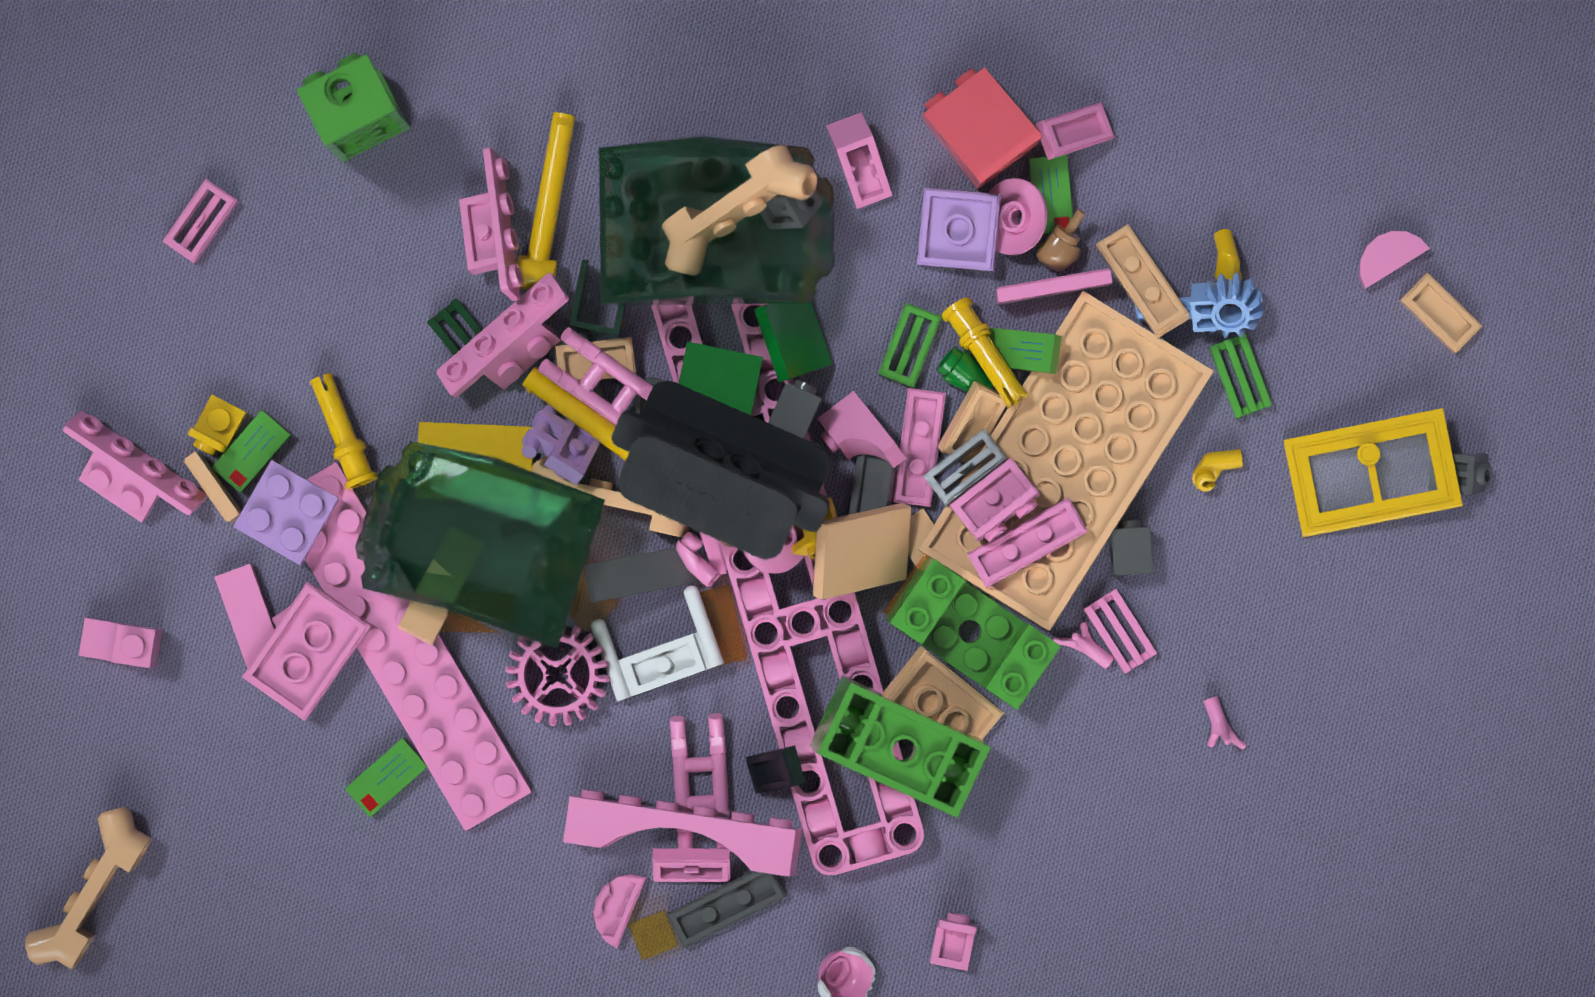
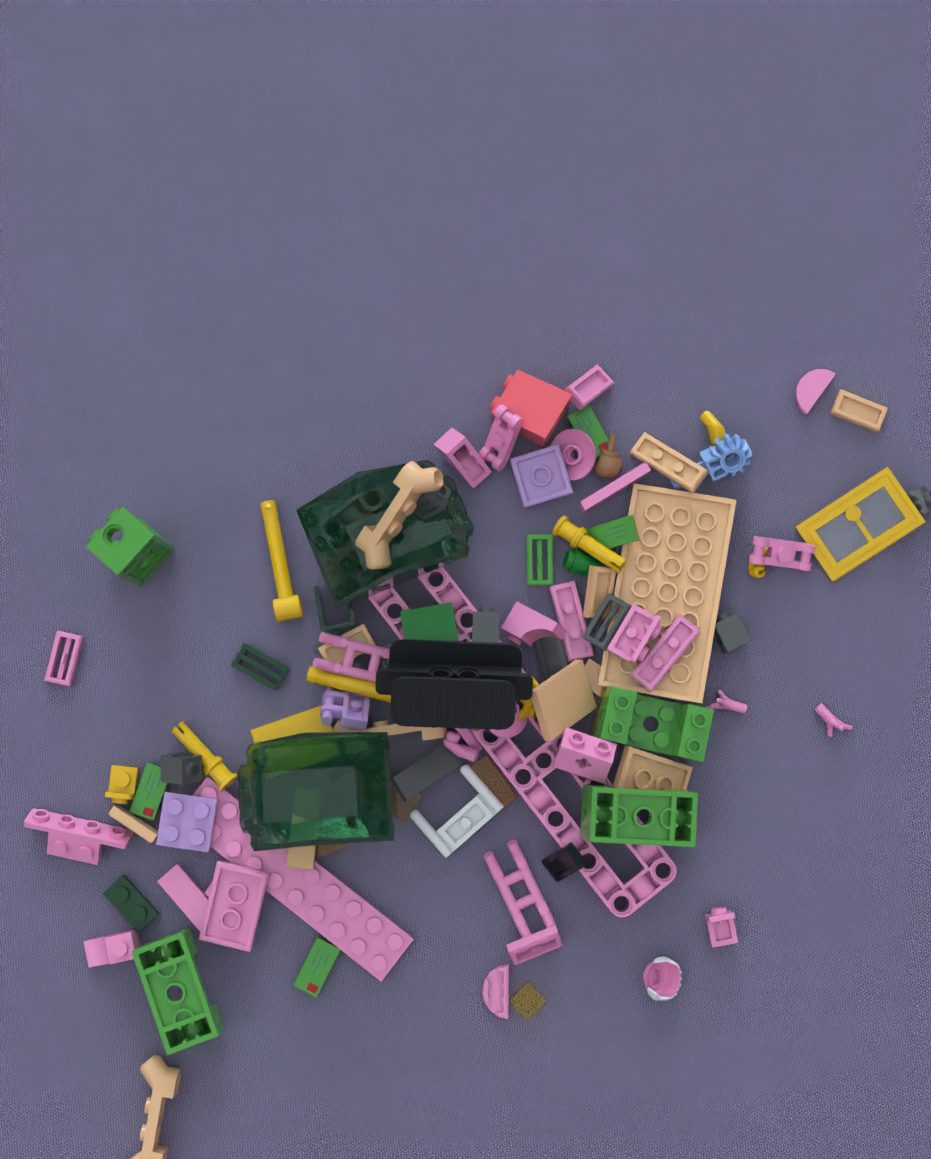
camera: 20 degrees left, 5 degrees down
(167, 592) = (131, 903): none -> dark green plate
(192, 692) = (171, 963): none -> bright green plate
(305, 436) = (181, 768): none -> dark grey brick
(488, 229) = (246, 590): bright pink bracket -> none
(509, 342) = (288, 656): bright pink bracket -> none
(583, 696) = (393, 876): bright pink gear -> none
(724, 906) = (566, 962): dark grey tile -> none
(761, 846) = (574, 915): bright pink arch -> none
(793, 339) = (465, 583): green tile -> none
(859, 637) = (585, 755): none -> bright pink brick
(923, 155) = (501, 437): none -> bright pink plate
(1103, 604) = (762, 698): bright pink tile -> none
(1247, 469) = (781, 553): none -> bright pink plate
(1253, 369) = (759, 491): bright green tile -> none

